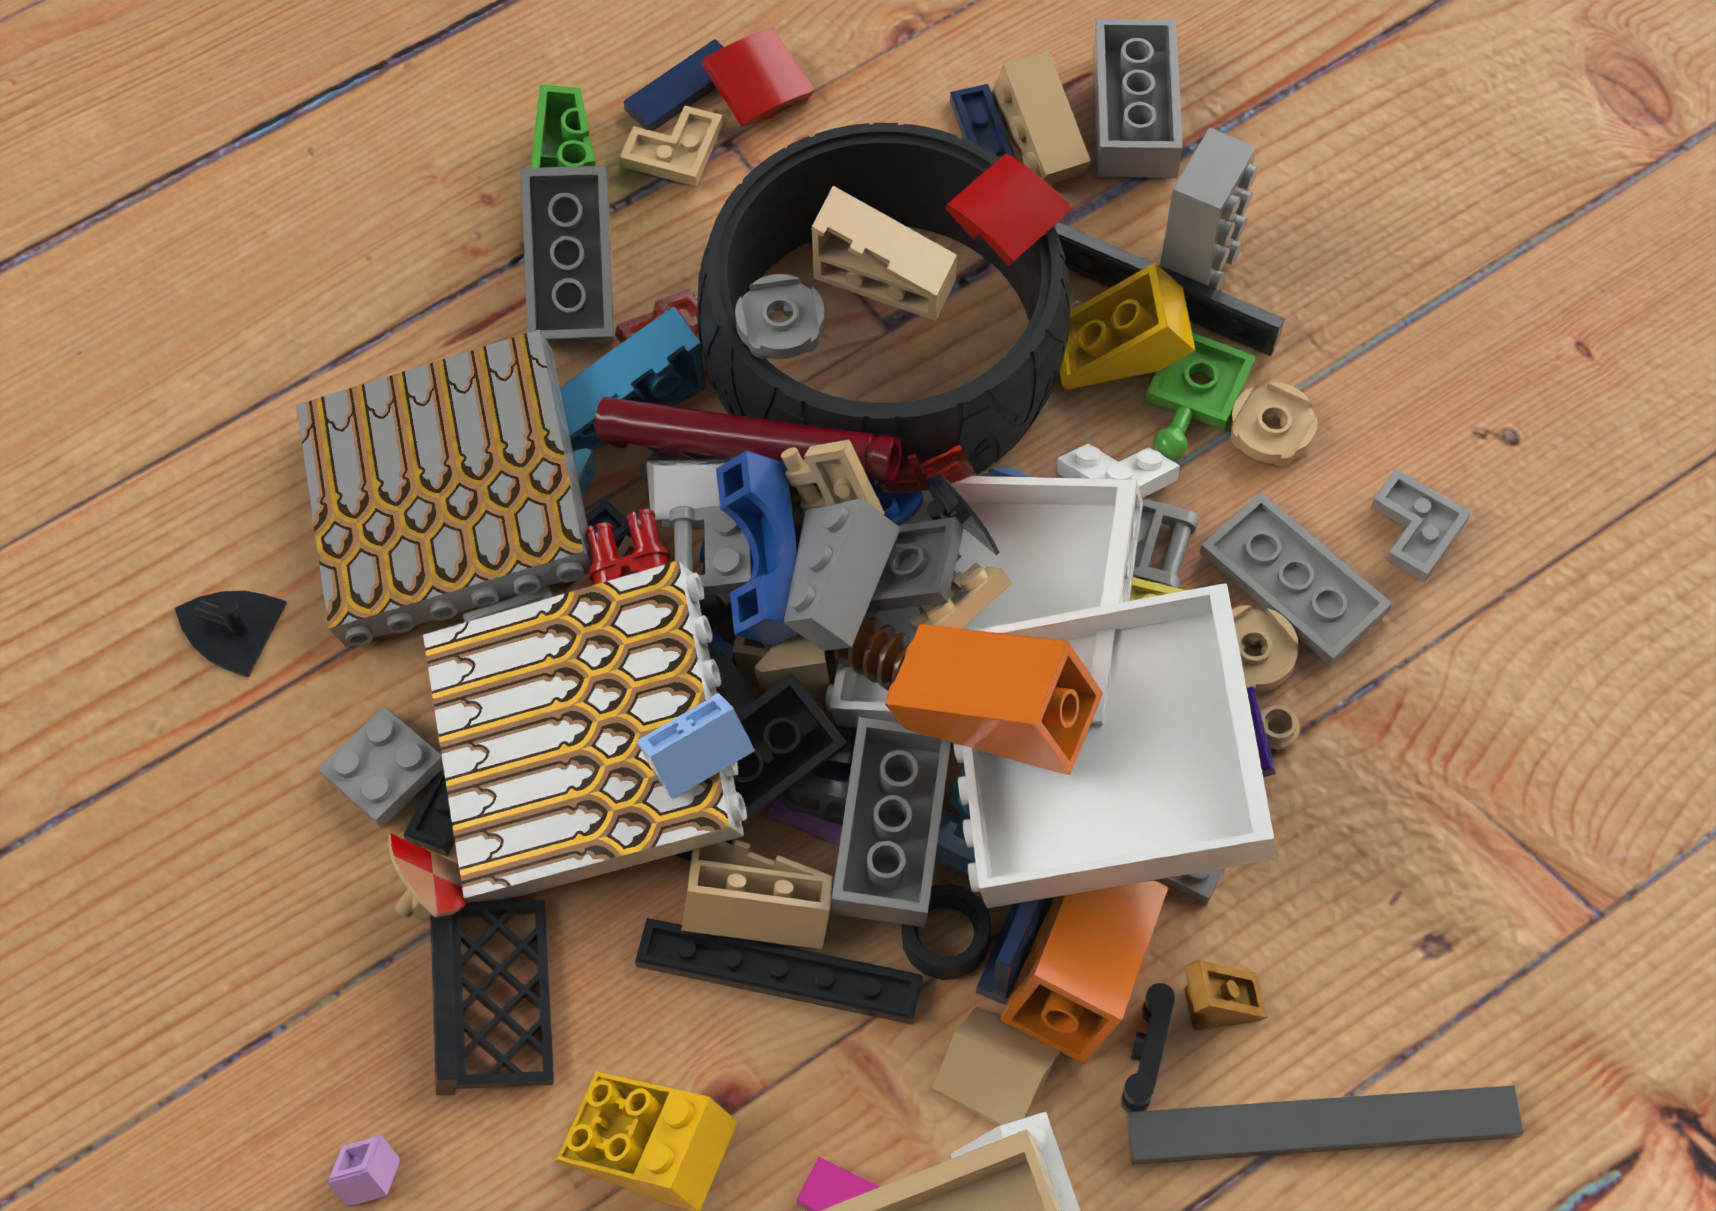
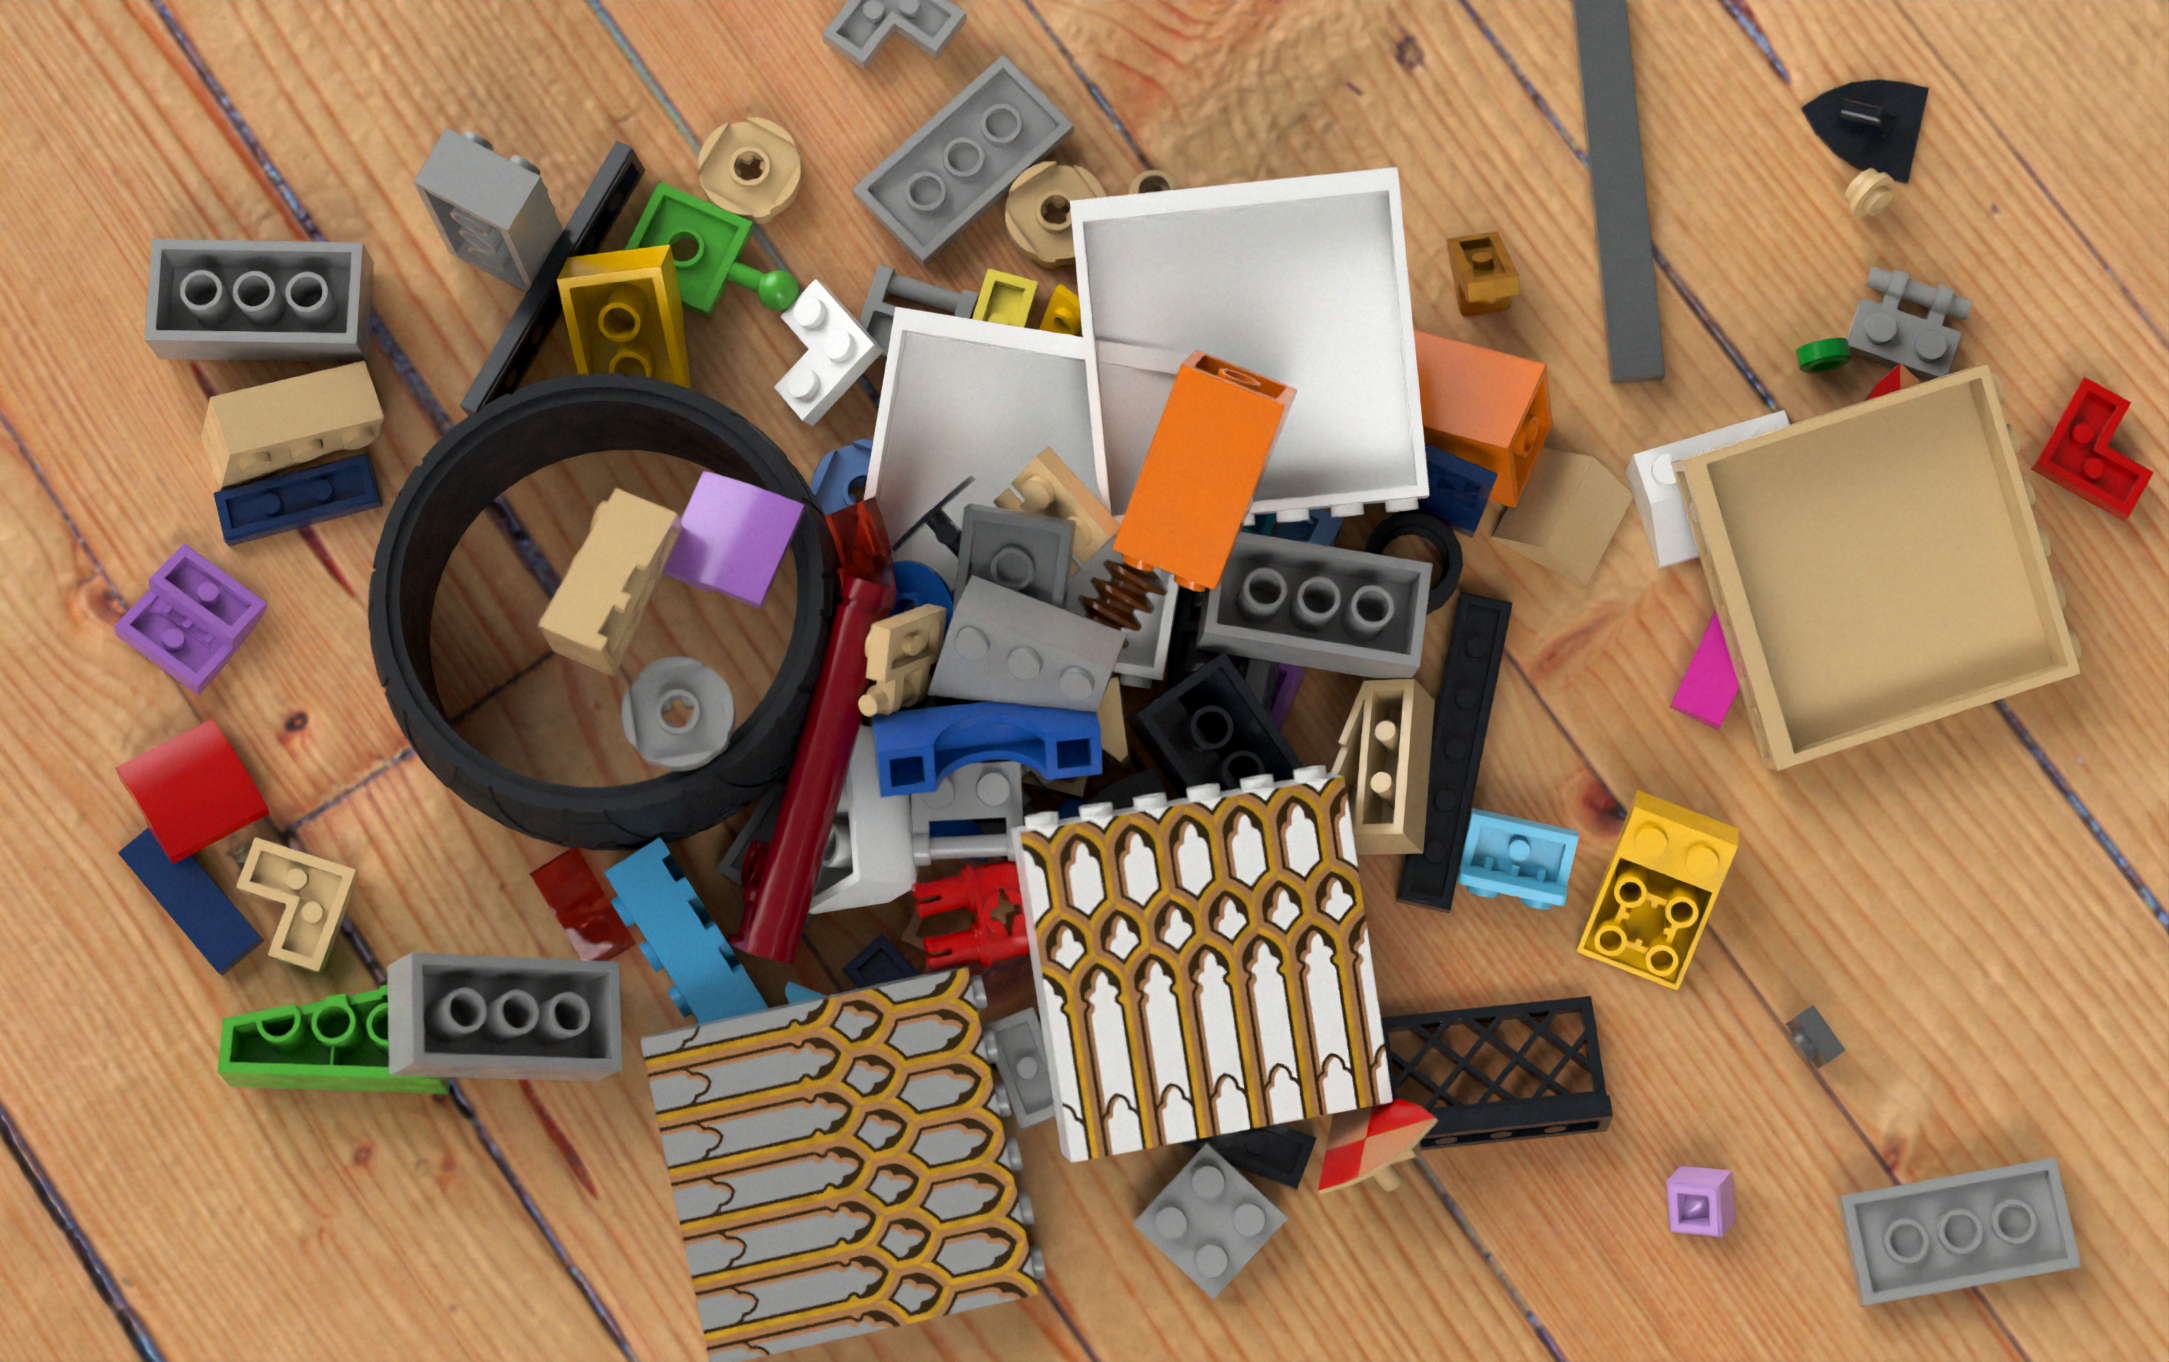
camera: 90 degrees left, 15 degrees up
(675, 1015) = (1517, 859): none -> medium azure bracket
(696, 745) = (1254, 811): light blue hinge -> none
(891, 76) = (191, 619): none -> medium lavender slope
(925, 355) = (733, 538): none -> medium lavender slope
(1008, 208) = (525, 431): red slope -> none
(1149, 1048) = (1560, 352): black plate -> none

